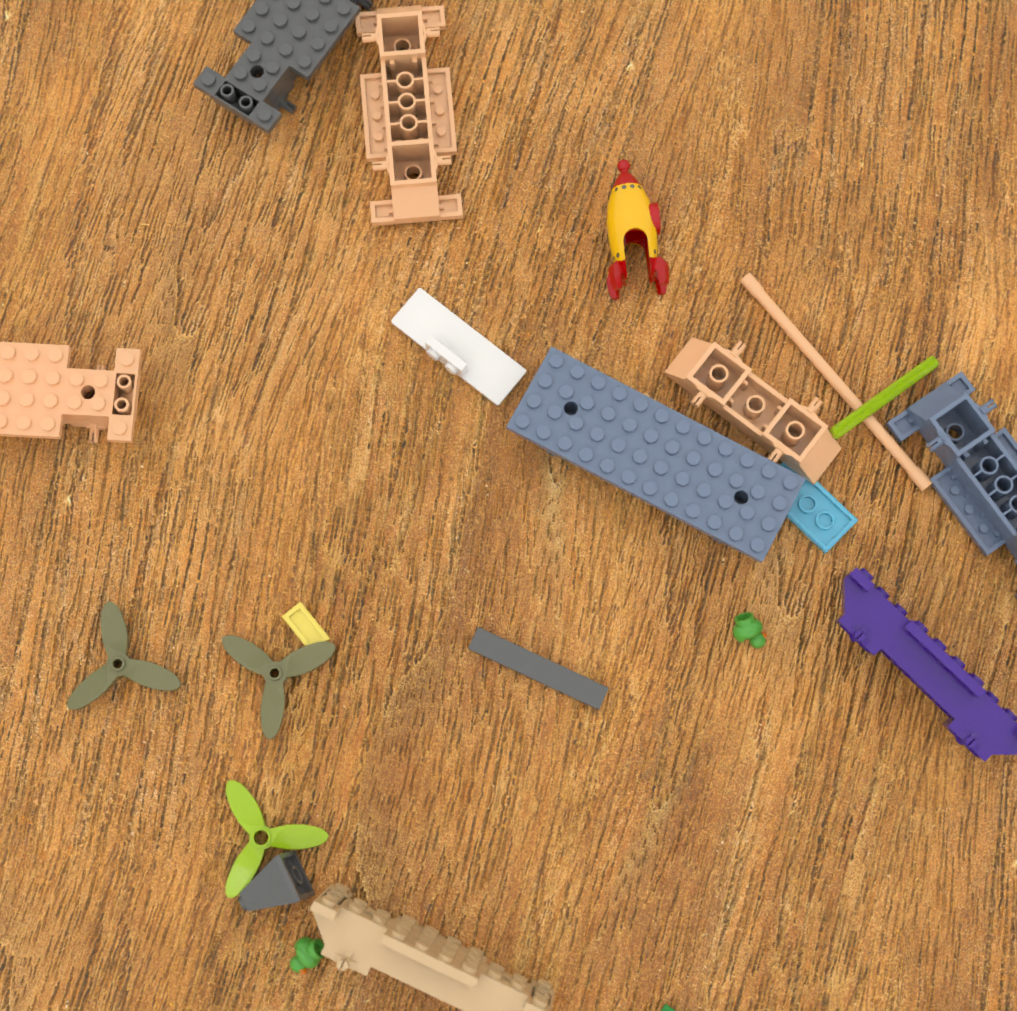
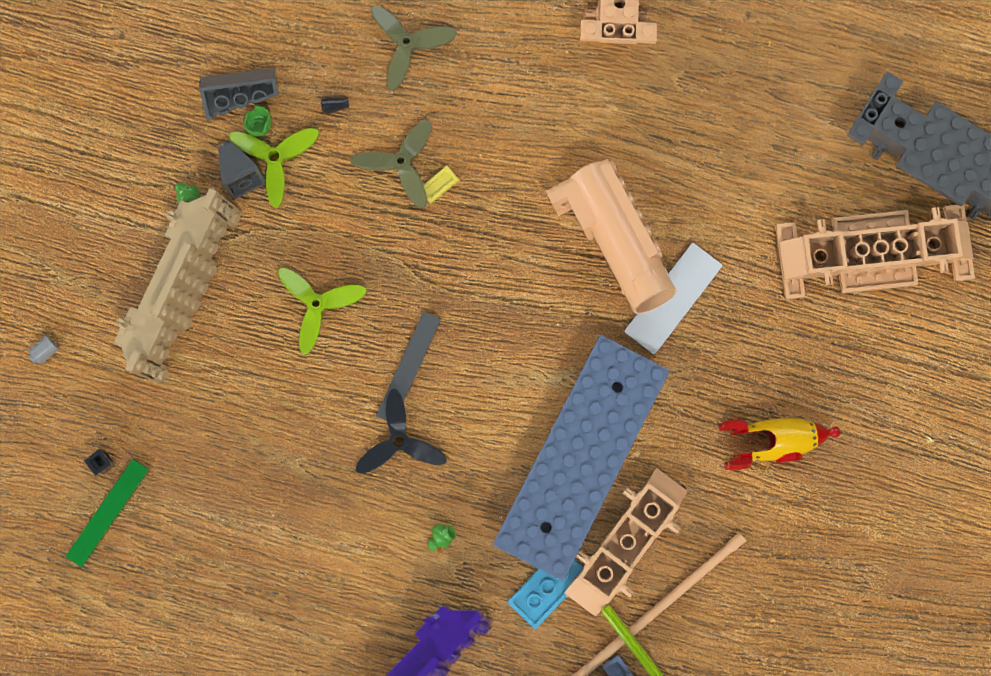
camera: 85 degrees right, 5 degrees up
(170, 886) = (236, 90): none -> dark grey wedge
(195, 760) = (333, 104): none -> black cone
(214, 858) = (258, 121): none -> bright green hair
(354, 414) = (611, 217): none -> light nougat piece
(475, 788) = (332, 299): none -> lime piece
(640, 696) = (397, 424): none -> black piece

